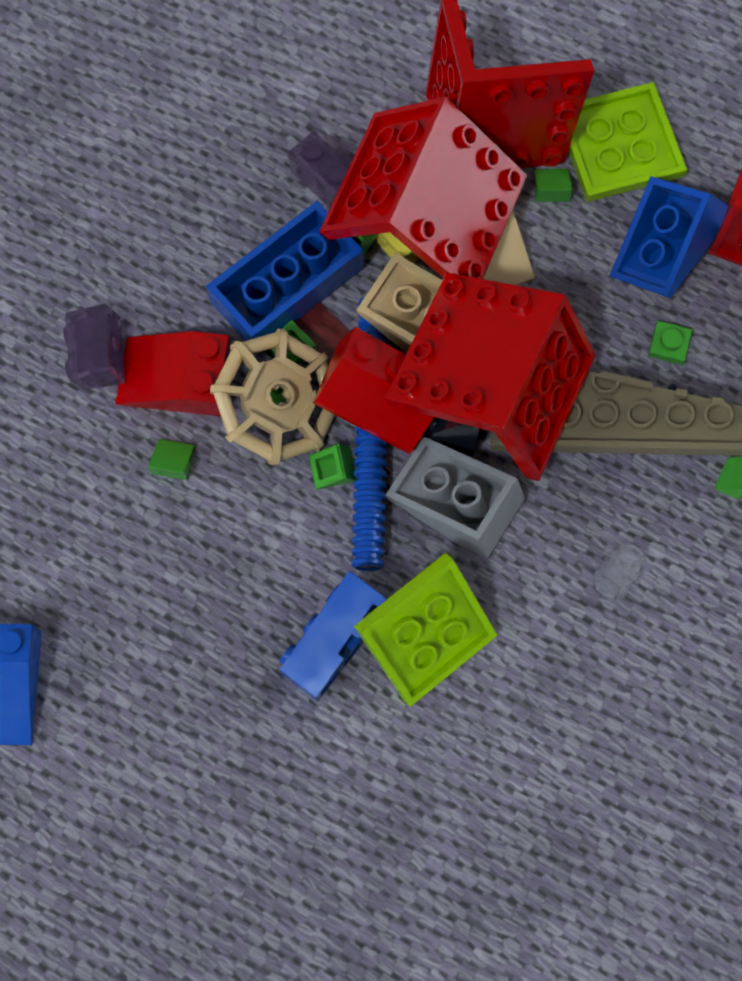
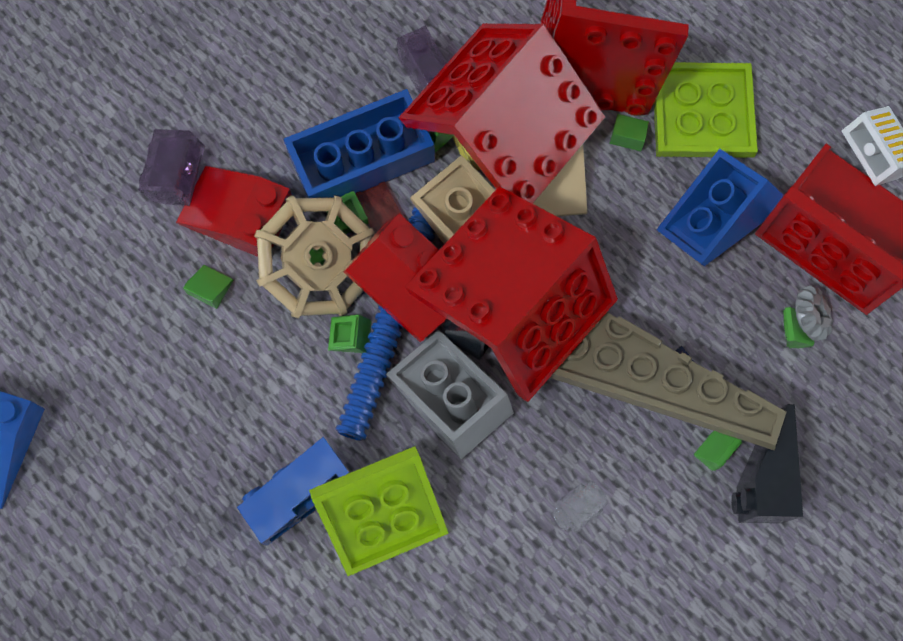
camera: 15 degrees right, 0 degrees up
(670, 342) = (693, 307): bright green plate -> none

